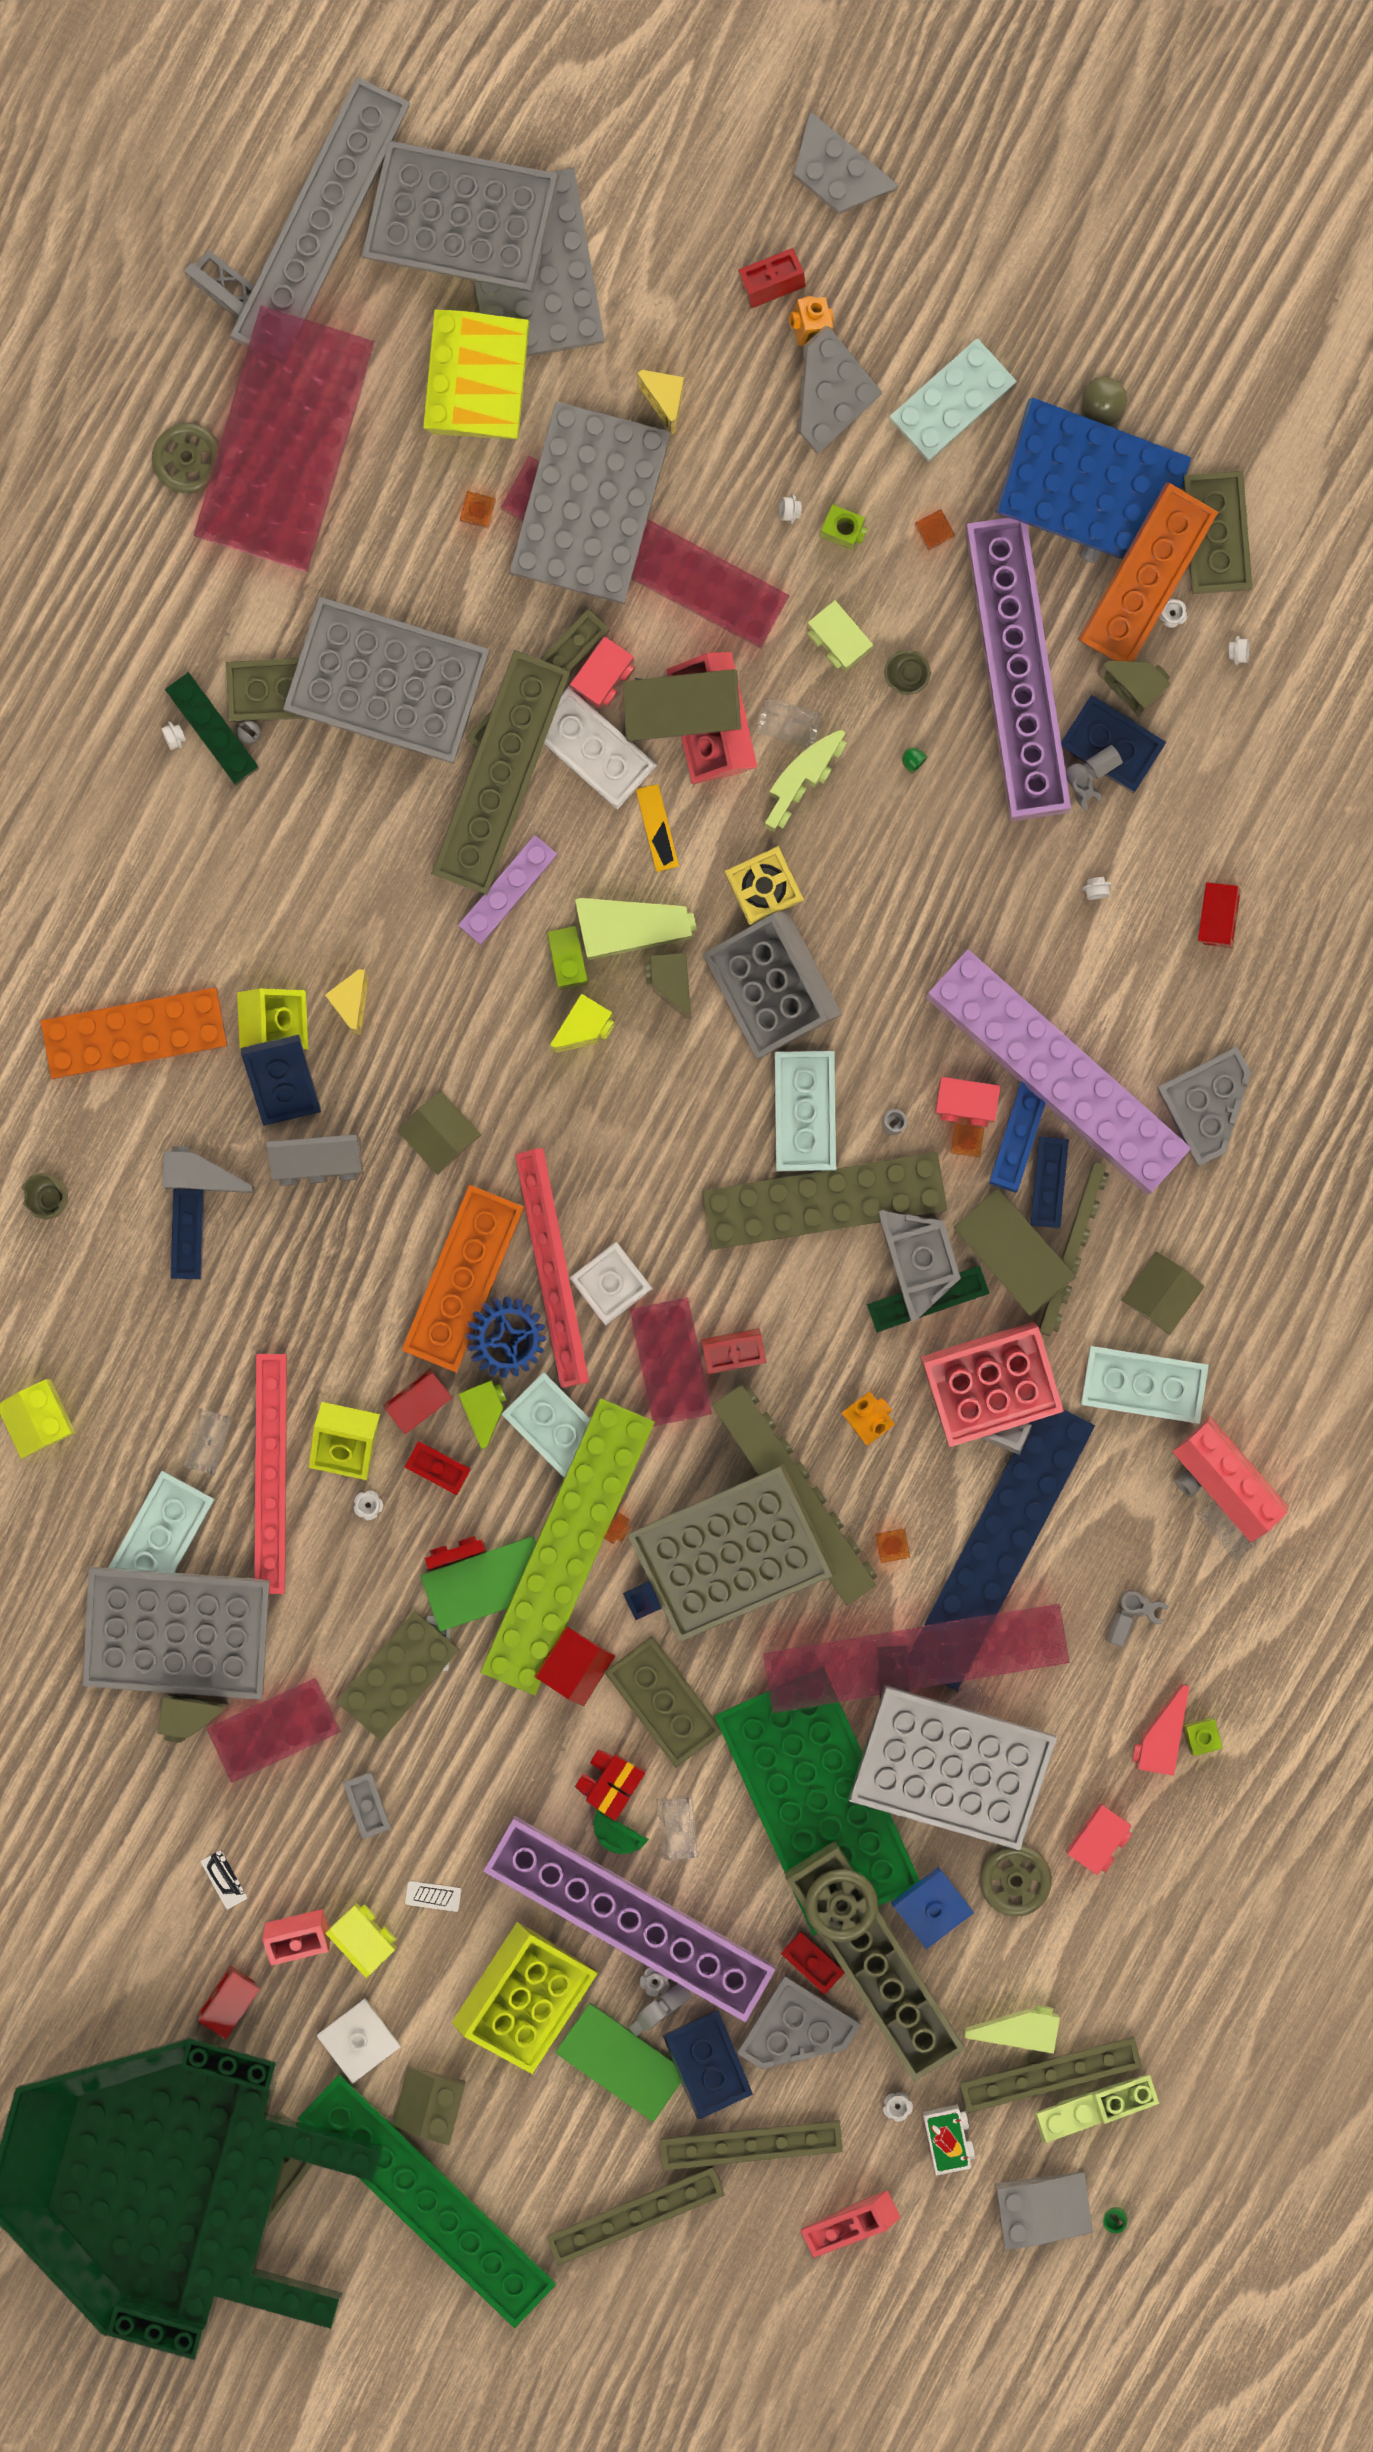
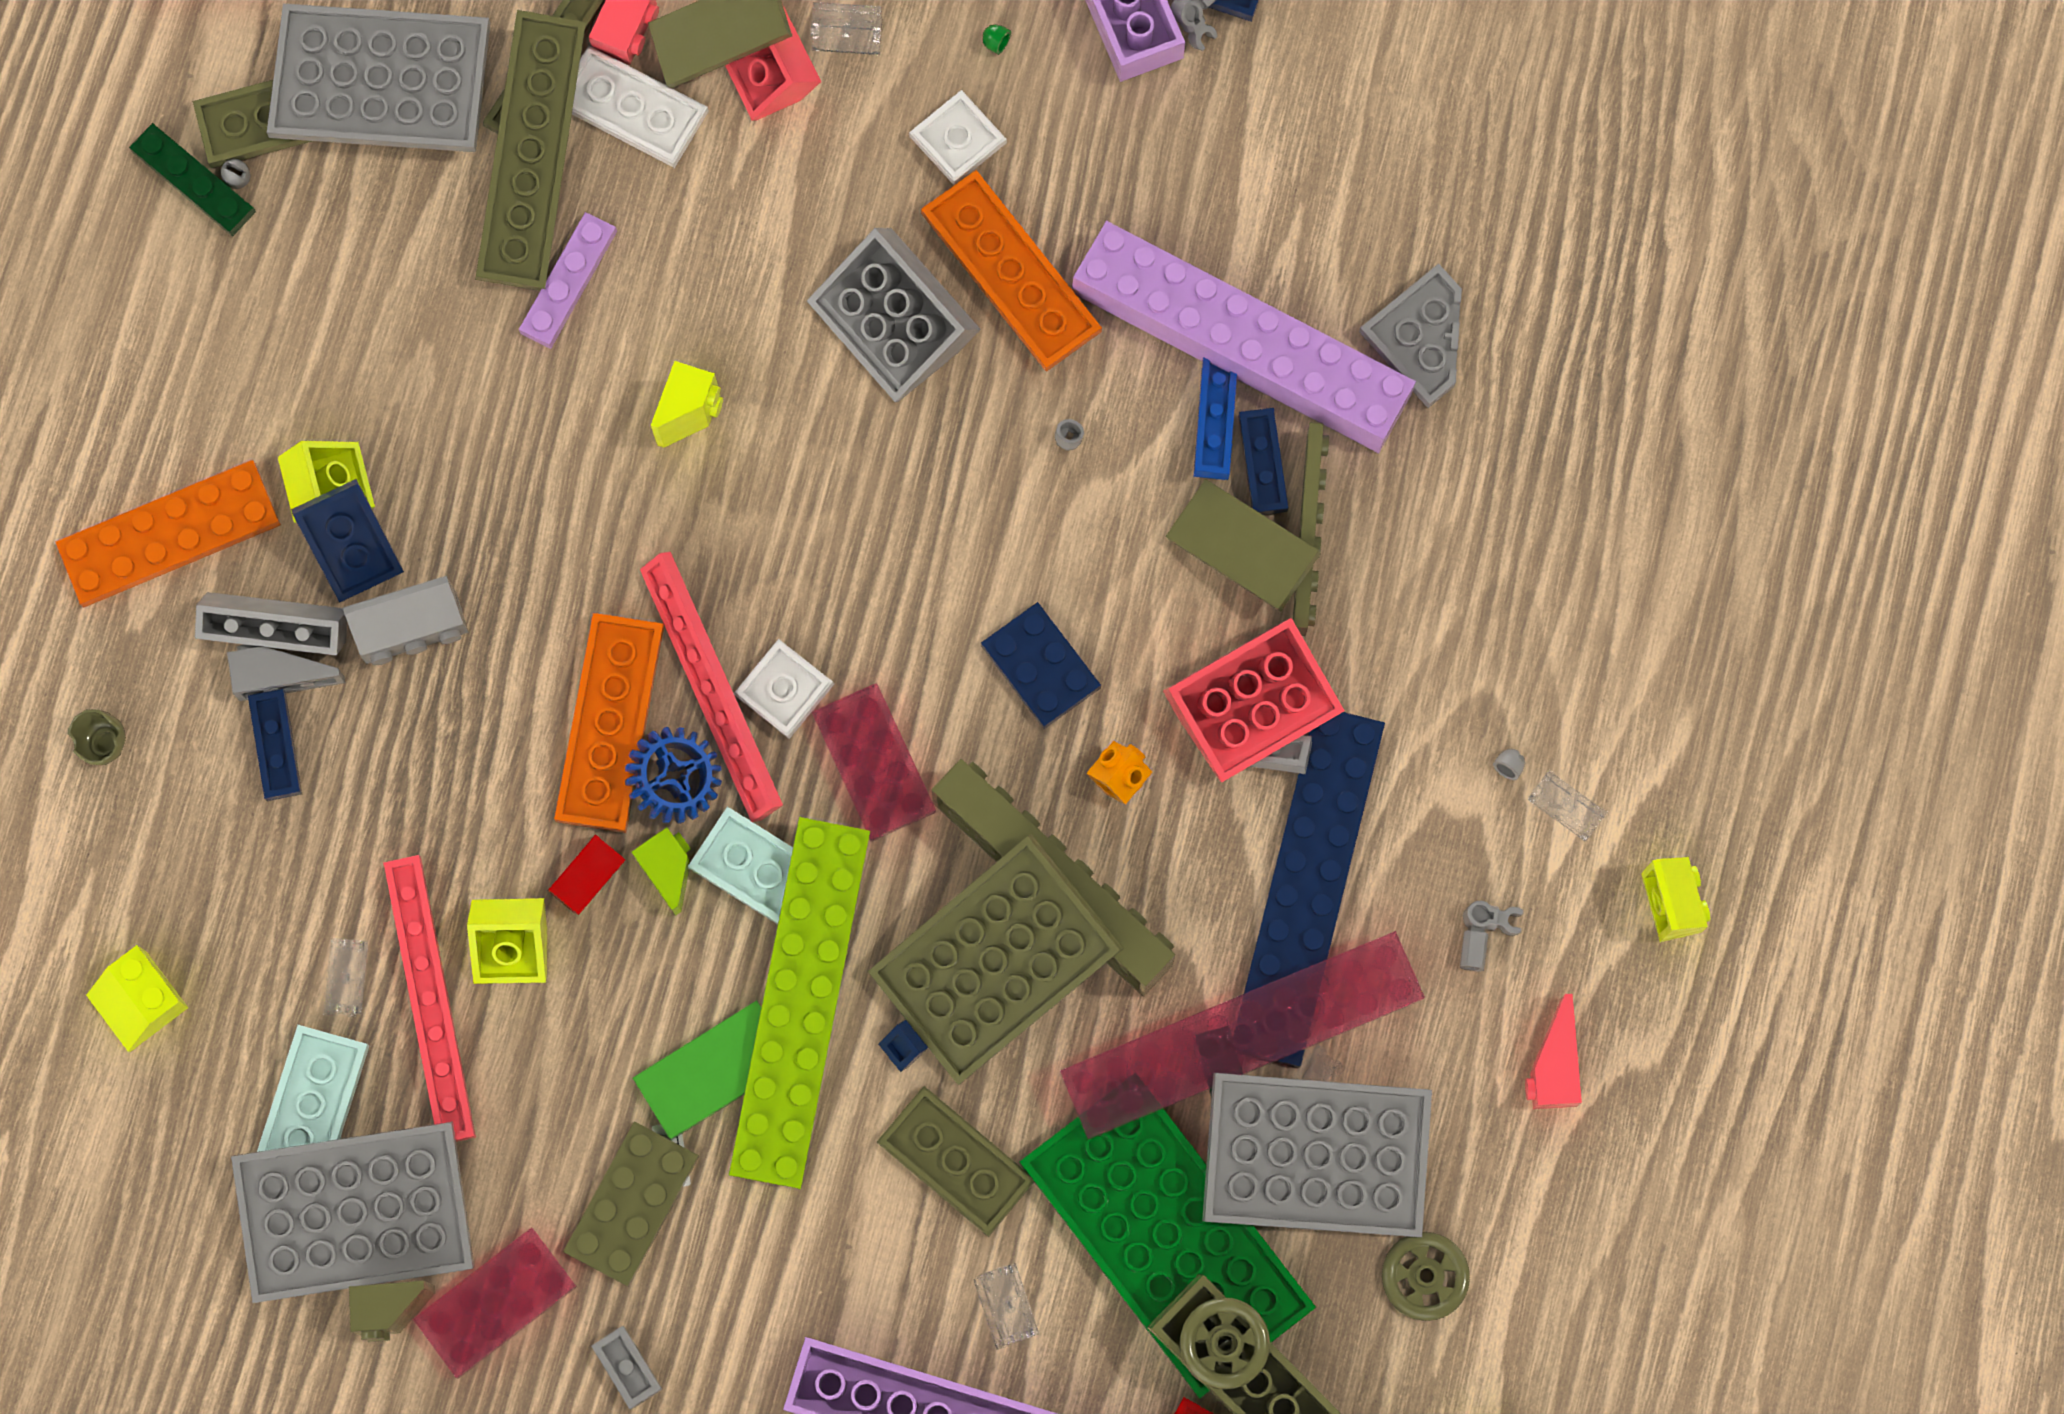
camera: 15 degrees left, 10 degrees down
(173, 736) = (149, 195): white plate -> none
(204, 1133) = (270, 623): none -> light grey brick
(350, 999) = (408, 433): light yellow slope -> none
(360, 1508) = (543, 1008): white plate -> none
(437, 1468) = (626, 947): red plate -> none
(438, 1132) = (545, 565): olive slope -> none
(442, 1556) = (656, 1048): red plate -> none
(567, 958) = (653, 339): lime slope -> none
(574, 1666) = (840, 1141): red slope -> none
(616, 1771) = (910, 1287): red hips -> none
(616, 1836) = (936, 1334): green plate -> none
(618, 1529) = (855, 969): clear orange plate -> none
(630, 926) = (716, 286): yellowish green slope -> none
(657, 827) = (723, 177): yellow sticker -> none
(670, 981) = (774, 332): olive slope -> none
(733, 1351) = (944, 732): red hinge -> none
(763, 885) = (858, 205): light yellow piece -> none
(805, 1111) = (964, 445): light aqua plate -> none
(808, 767) = (875, 75): yellowish green slope -> none
(823, 1200) = (1009, 541): olive plate -> none
(825, 1311) = (1040, 665): none -> dark blue plate
(861, 841) = (957, 137): none -> white plate
(879, 968) = (1011, 270): none -> orange plate
(892, 1545) = (1183, 914): clear orange plate -> none
(893, 1311) = (1156, 623): dark green plate -> none
(920, 1259) = (1136, 577): light grey wing -> none
(932, 1907) = (1334, 1330): blue plate -> none
(967, 1101) = (1147, 392): coral brick -> none
(967, 1140) = (1157, 436): clear orange plate -> none
(1097, 888) = (1236, 130): white plate -> none
(1099, 1839) = (1512, 1202): coral brick -> none
(1144, 1384) = (1430, 663): light aqua plate -> none
(1163, 1292) = (1425, 555): olive slope -> none
(1202, 1736) = (1603, 1051): lime brick -> none
(1219, 915) = (1381, 127): red hinge -> none
(1231, 1480) = (1557, 746): coral slope -> none
(1294, 1627) = (1675, 898): none -> neon yellow slope

